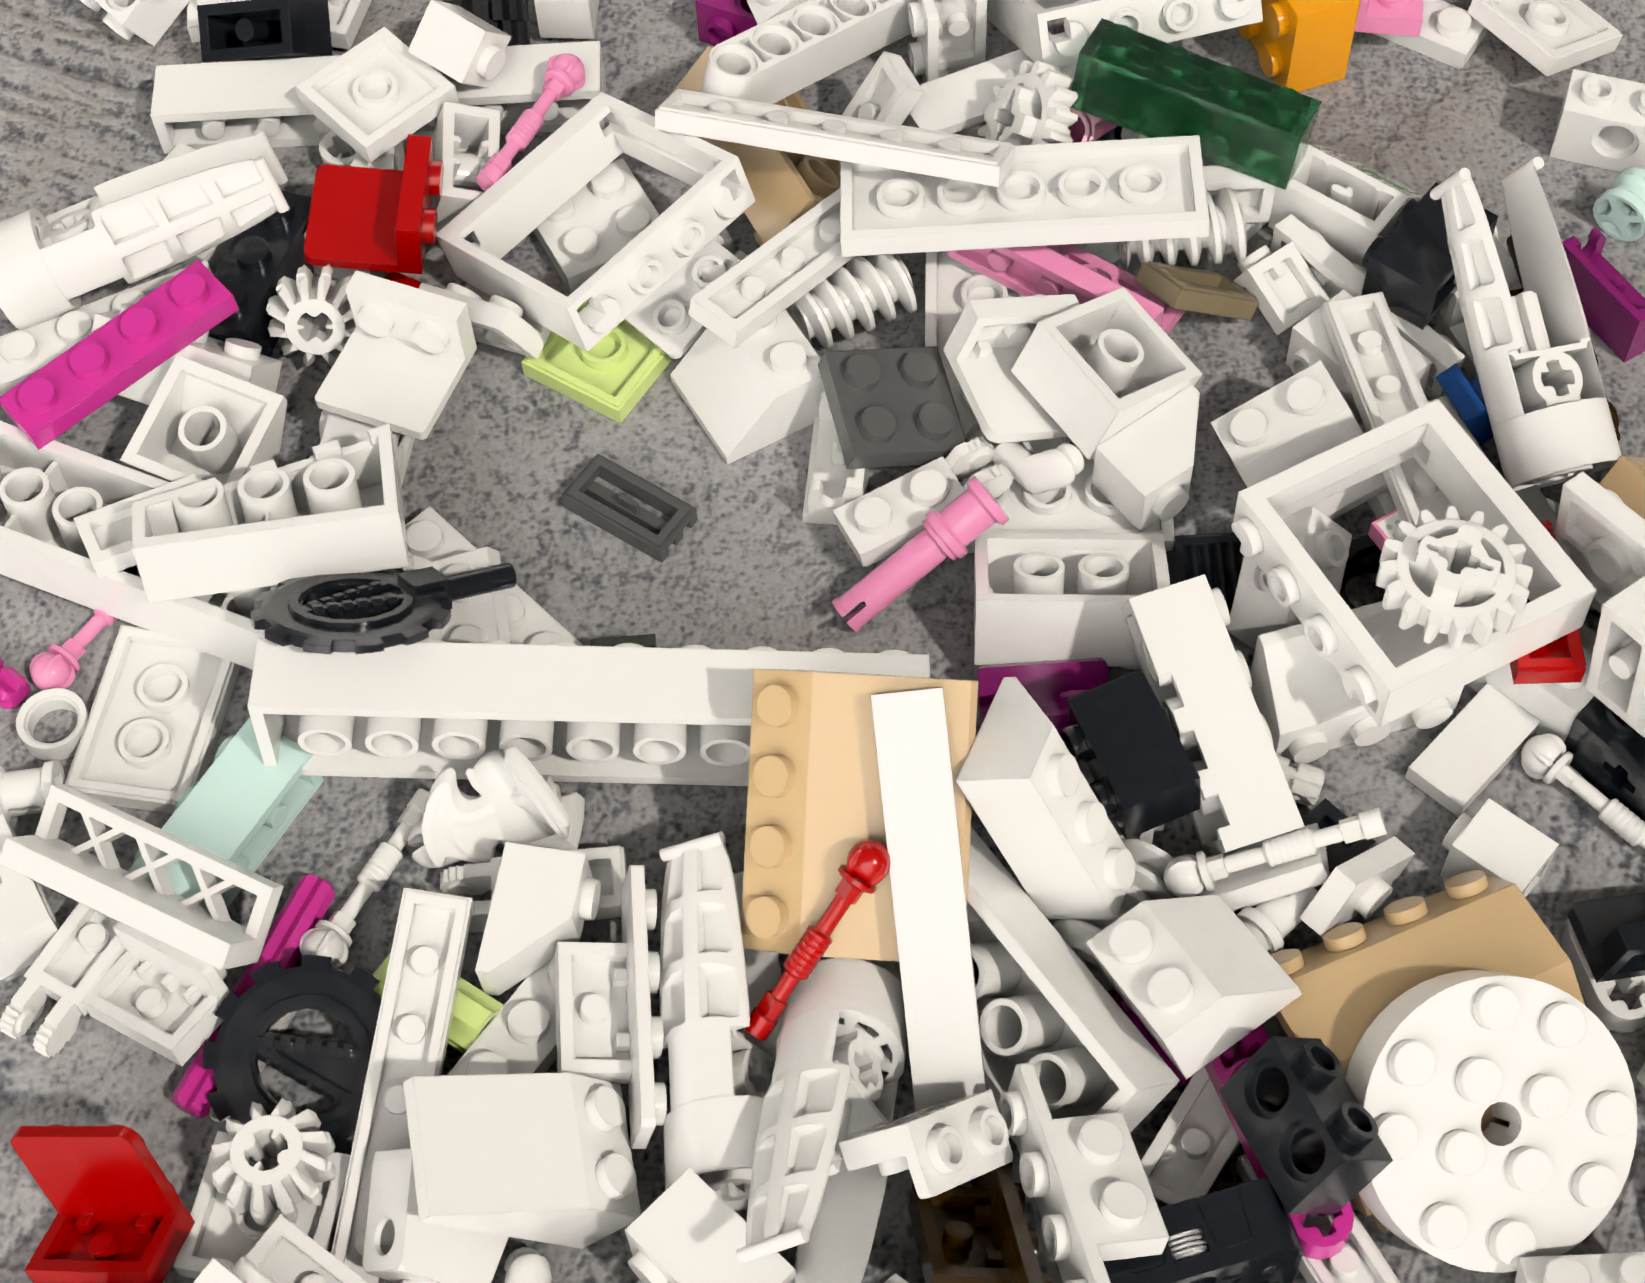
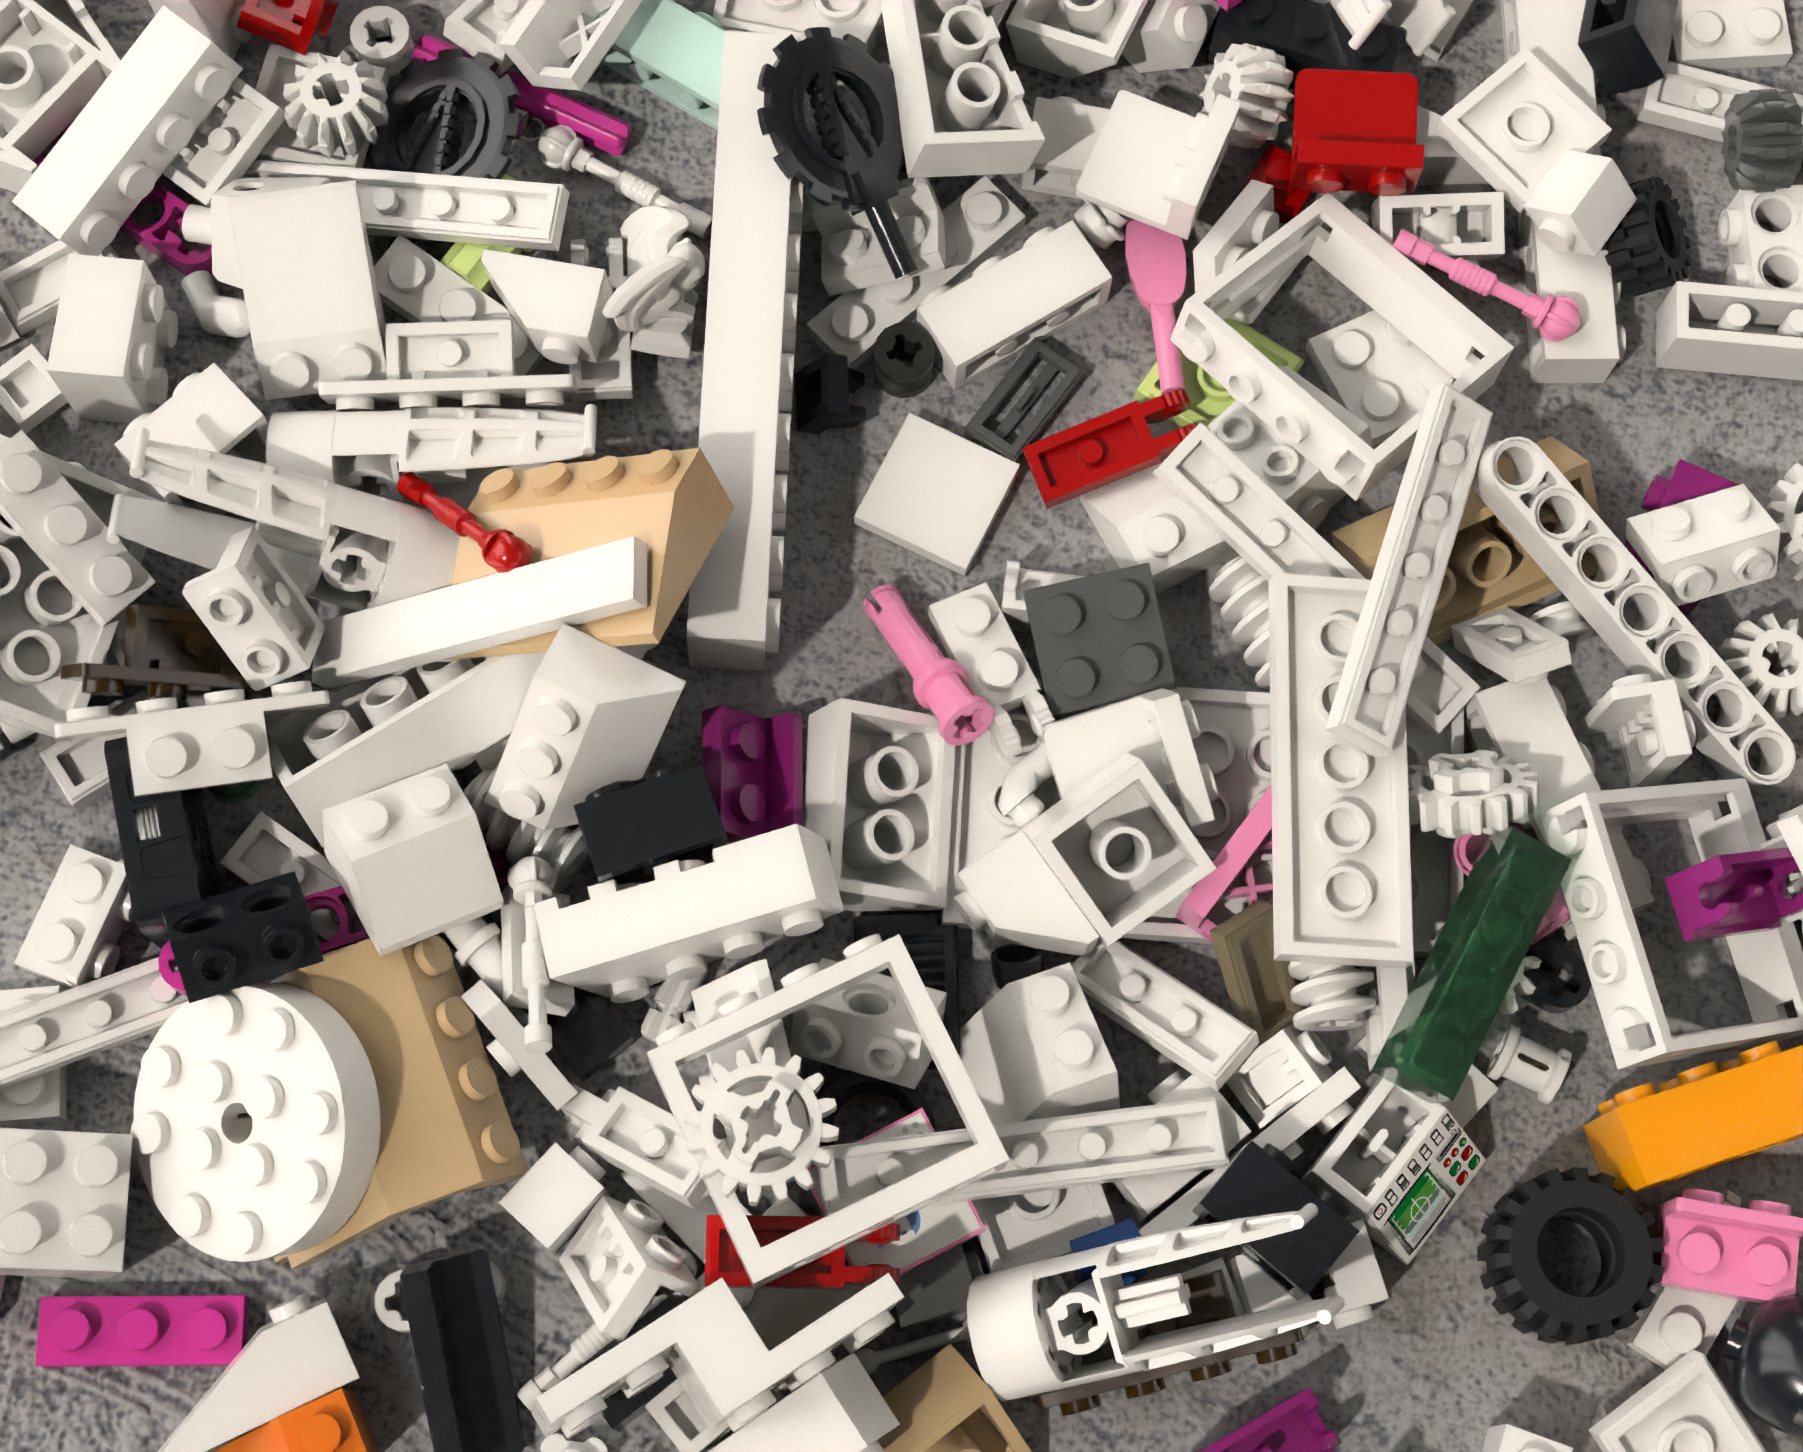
camera: 85 degrees right, 15 degrees up
(182, 1159) = (391, 54): none -> white wheel
(440, 441) = (1101, 224): none -> white plate
(505, 392) = (1158, 277): none -> bright pink piece
(528, 511) = (1013, 301): none -> white brick
(575, 611) = (902, 374): none -> pearl dark grey wheel
(686, 428) = (1105, 448): none -> red hinge
(728, 576) = (936, 494): none -> white tile
(841, 90) = (1564, 621): none -> white bush
(1219, 487) = (1014, 963): none -> black hinge
(1247, 353) = (1164, 1012): none -> white tile
(1407, 85) = (1621, 1240): none -> black tyre
(1435, 769) = (638, 1141): none -> white hinge
(1564, 773) = (621, 1262): none -> white bracket

